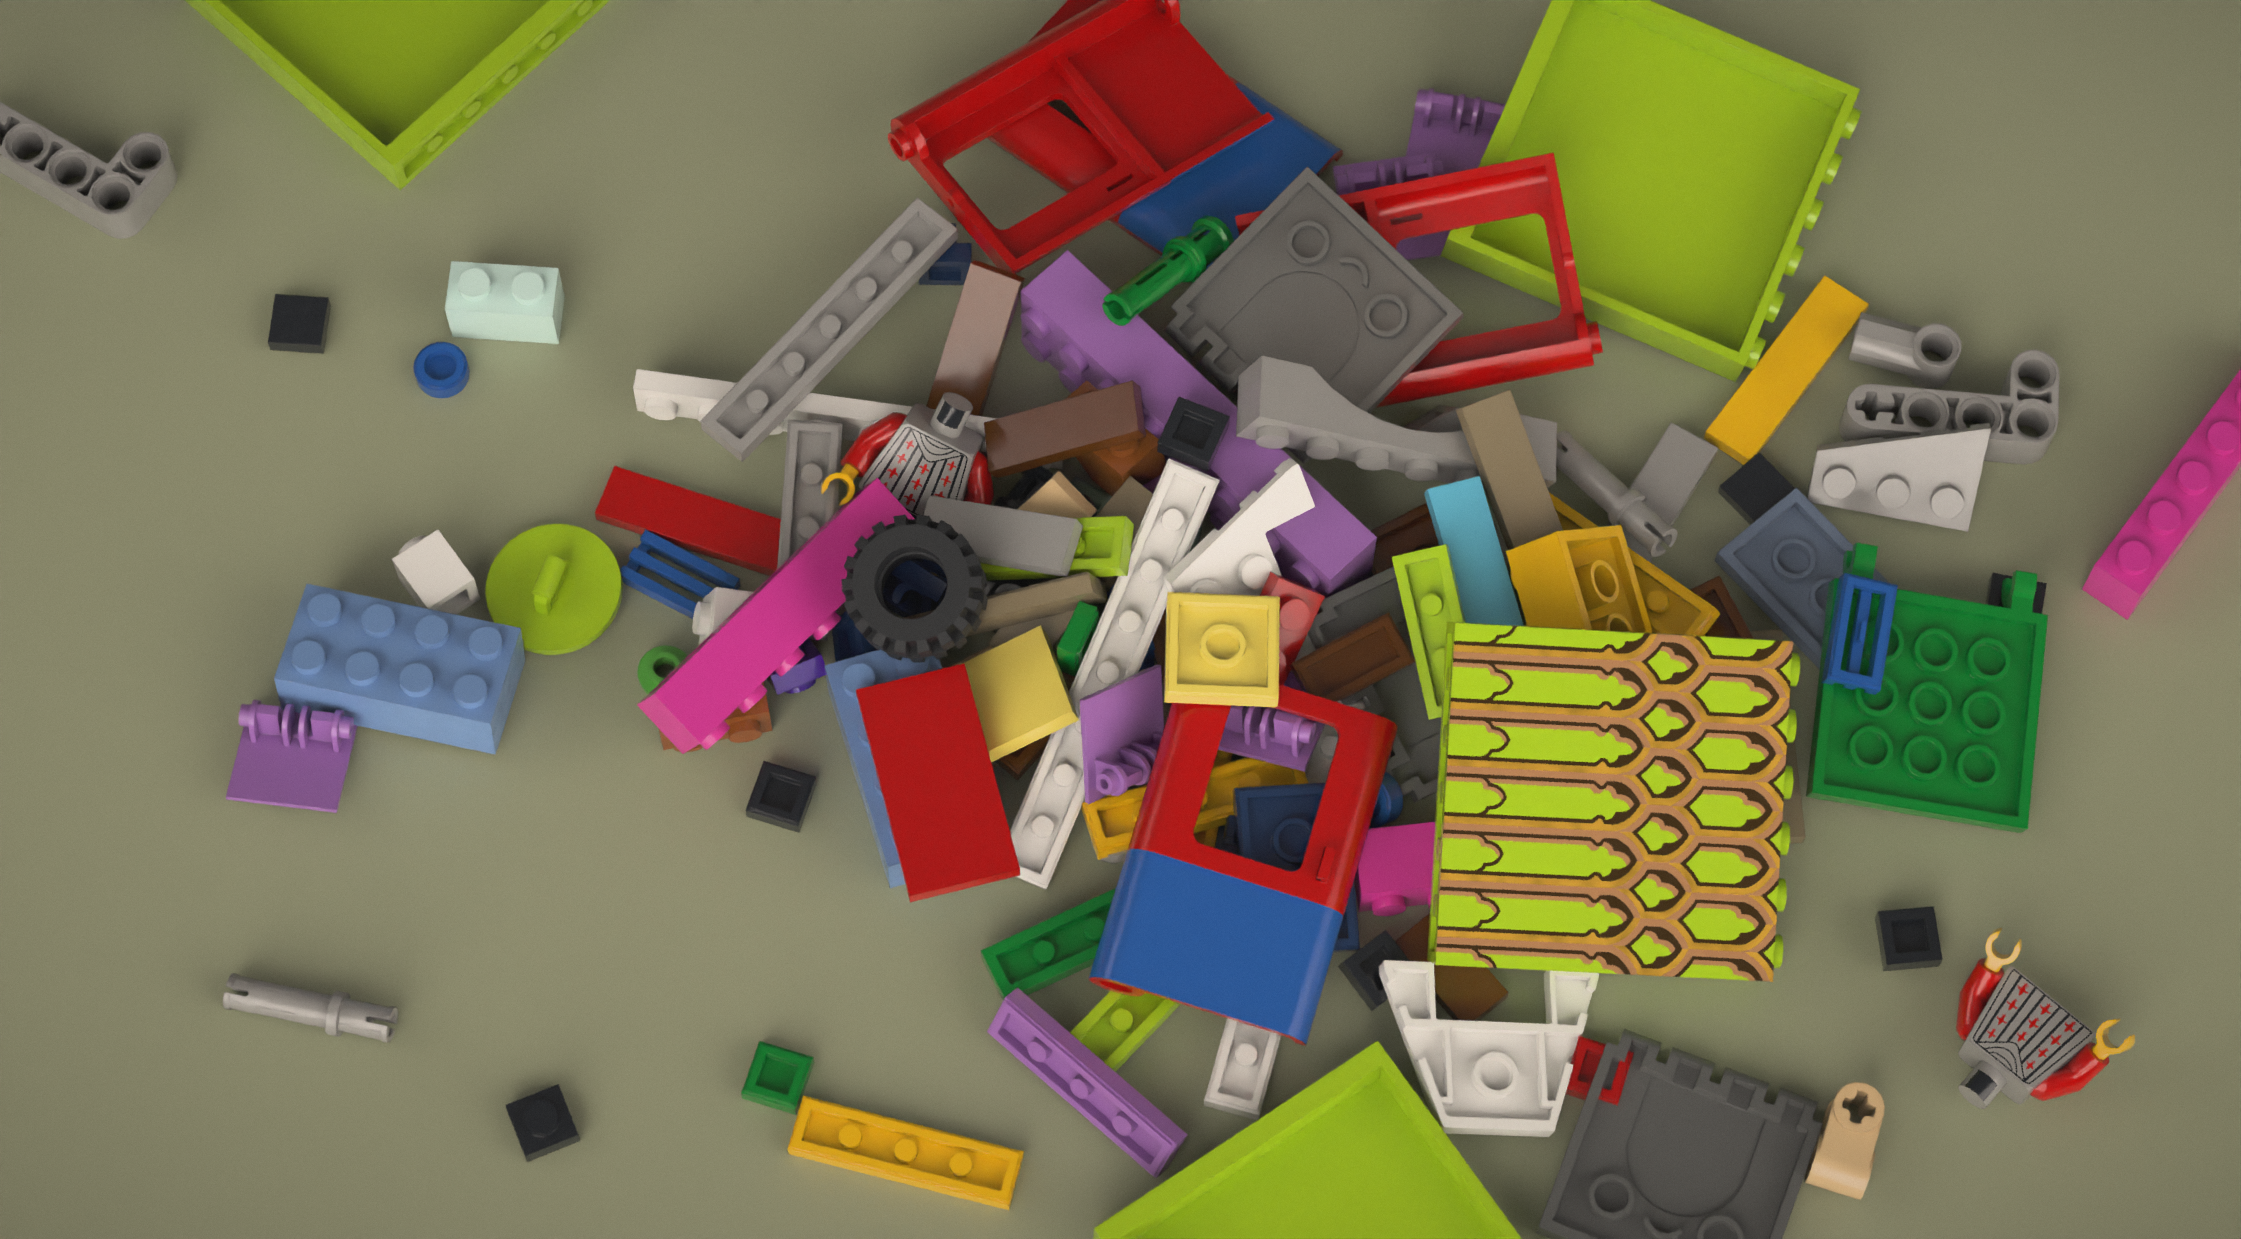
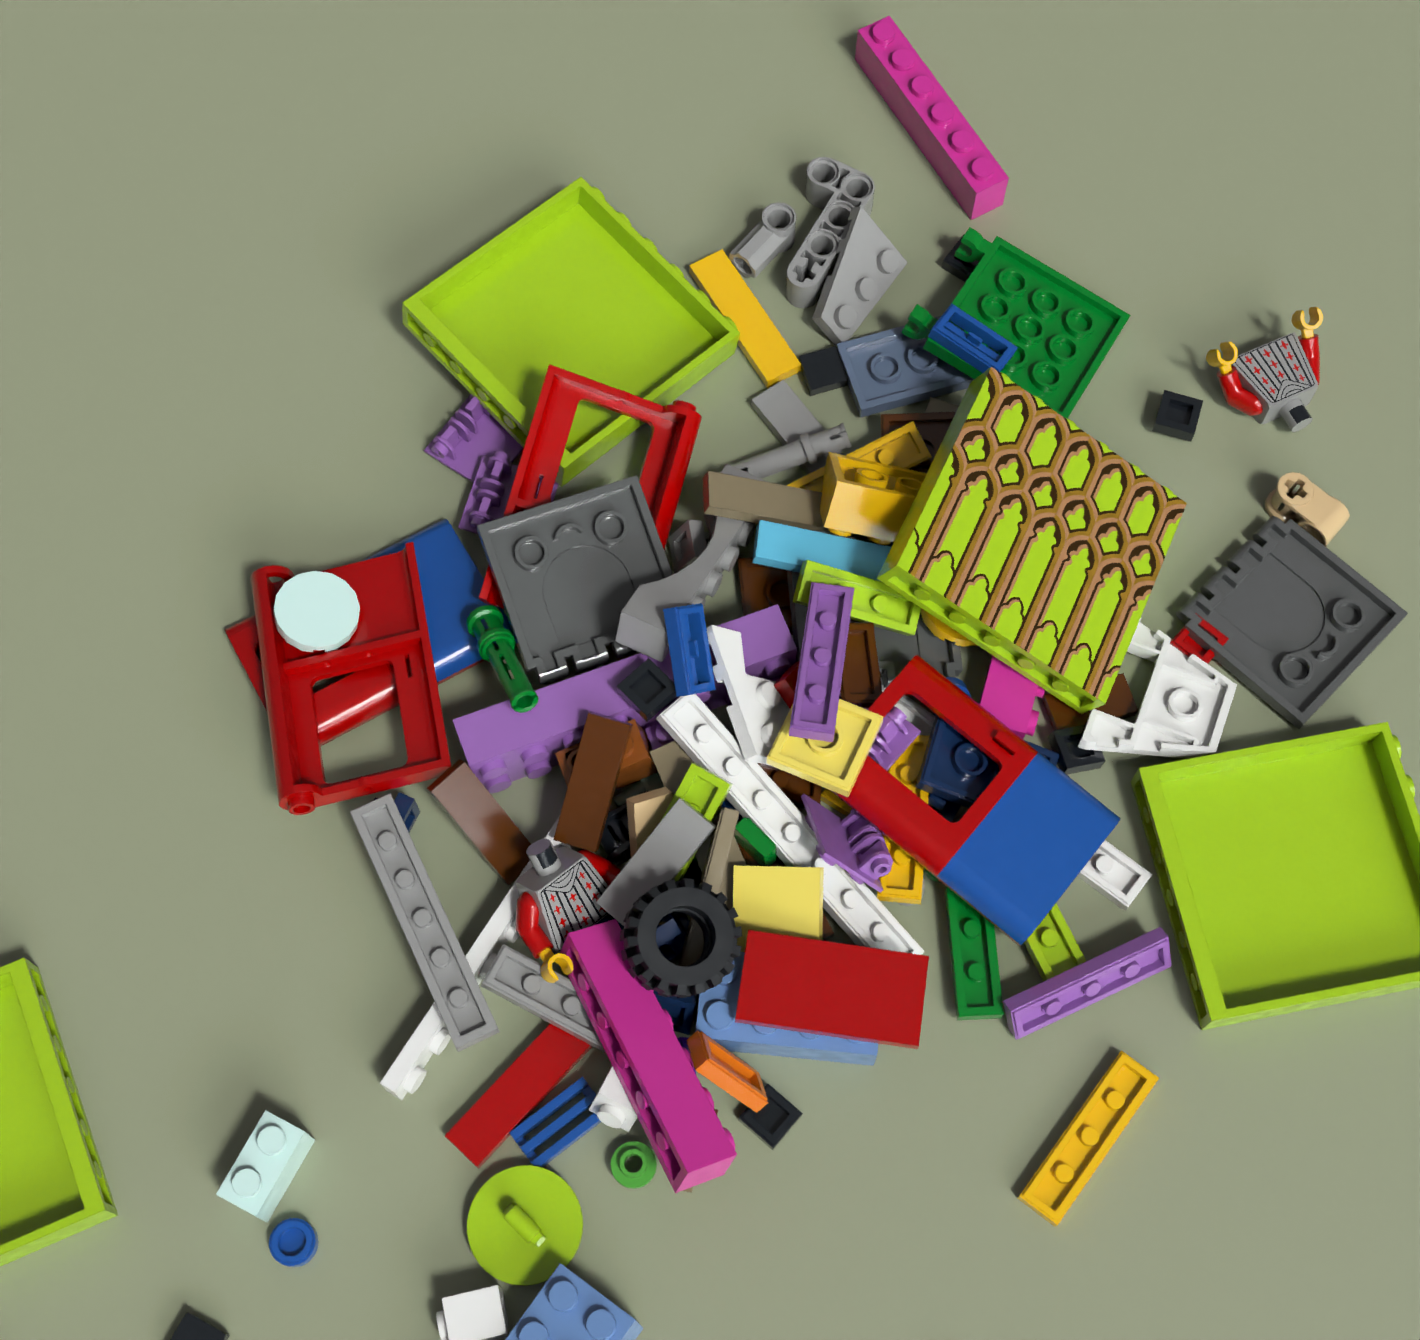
camera: 65 degrees left, 0 degrees up
(777, 1077) = (994, 1210): green tile -> none
(802, 717) = (727, 1071): none -> orange tile
(1137, 56) = (316, 611): none -> light aqua tile
(1249, 445) = (689, 649): none -> blue tile
(1316, 605) = (821, 662): none -> medium lavender tile

